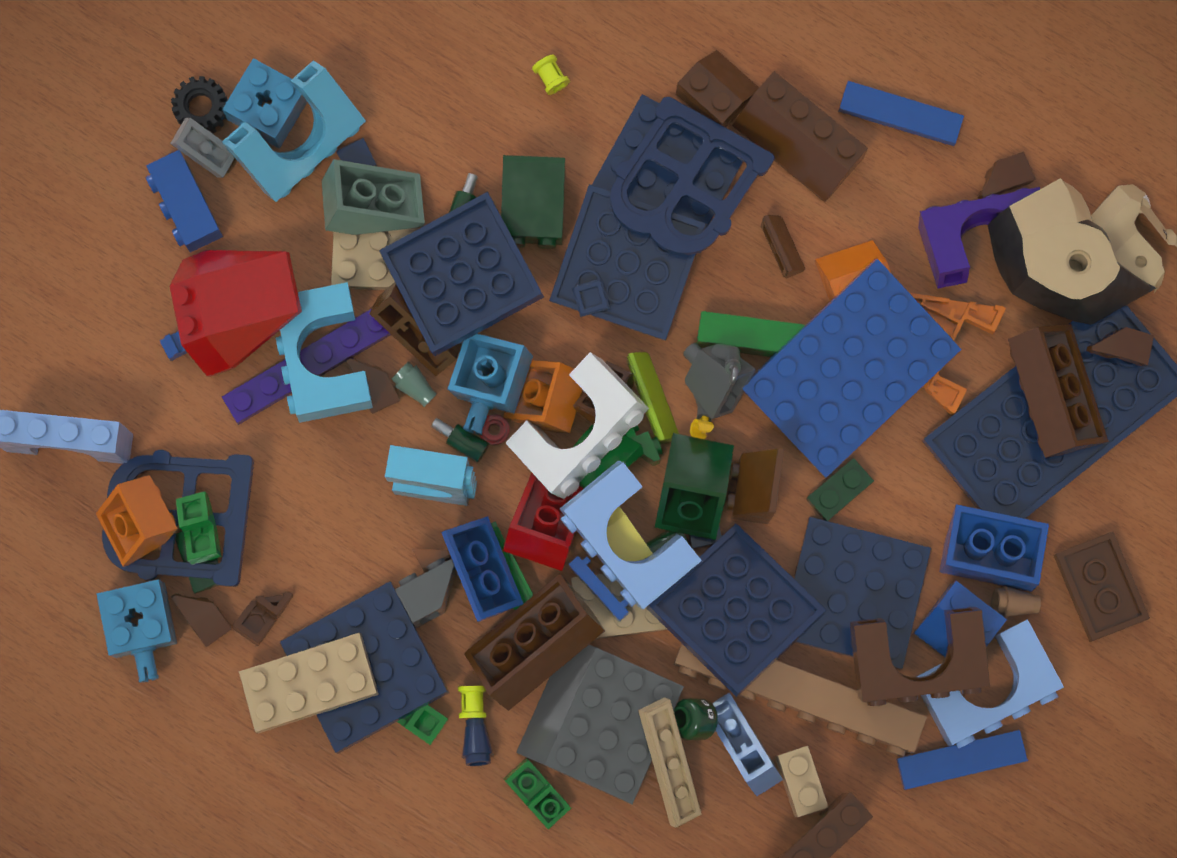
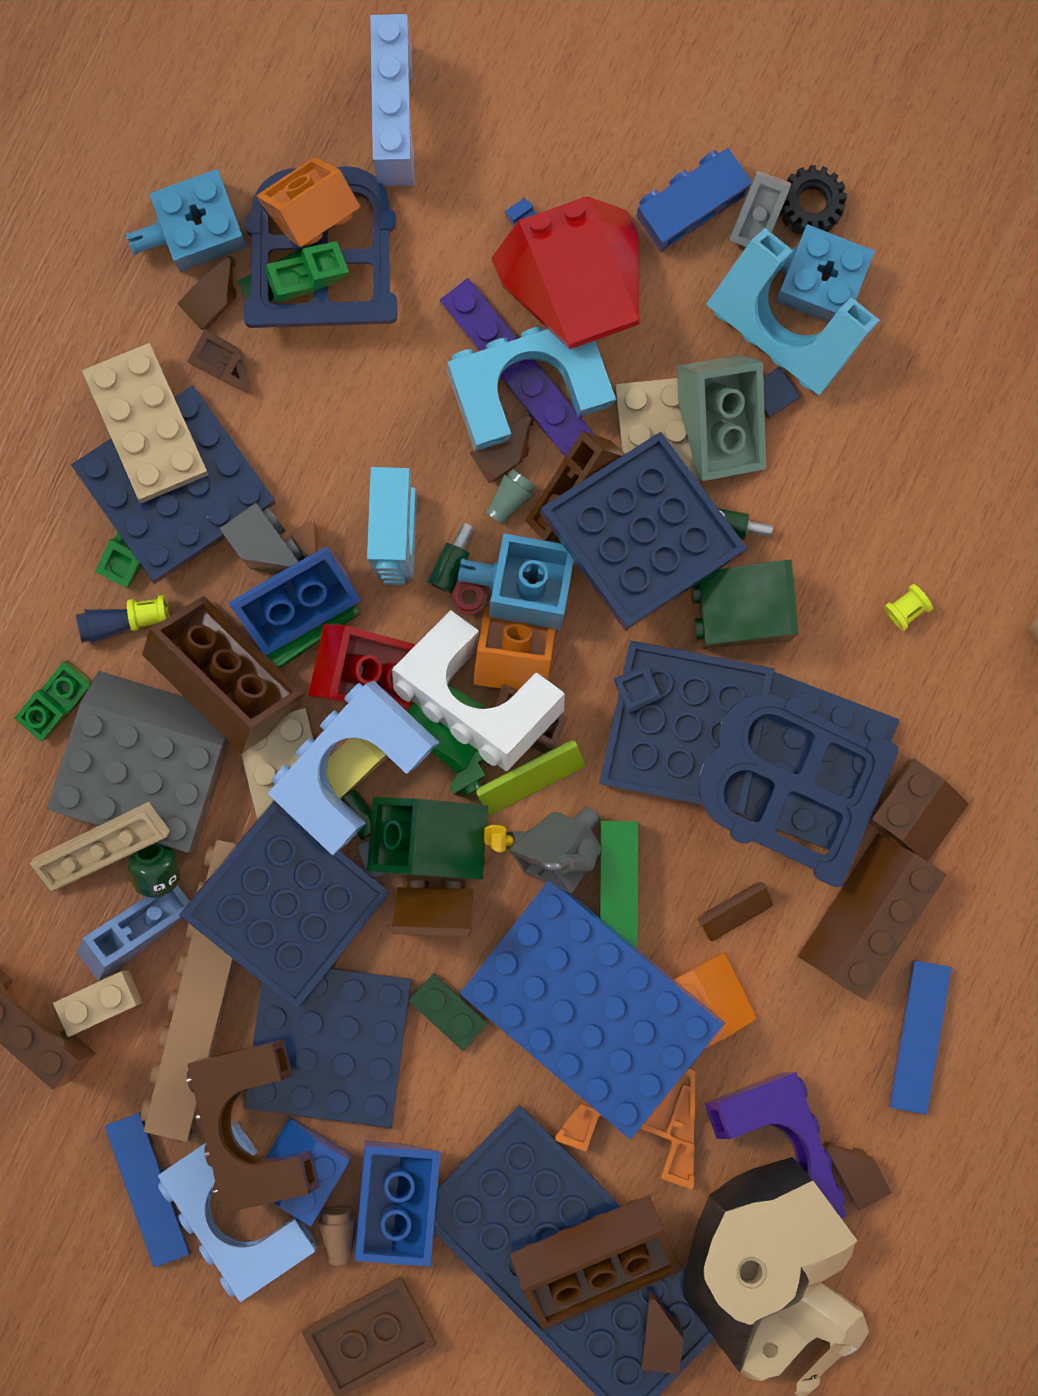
camera: 90 degrees right, 5 degrees up
(581, 569) = (292, 739): blue piece -> none

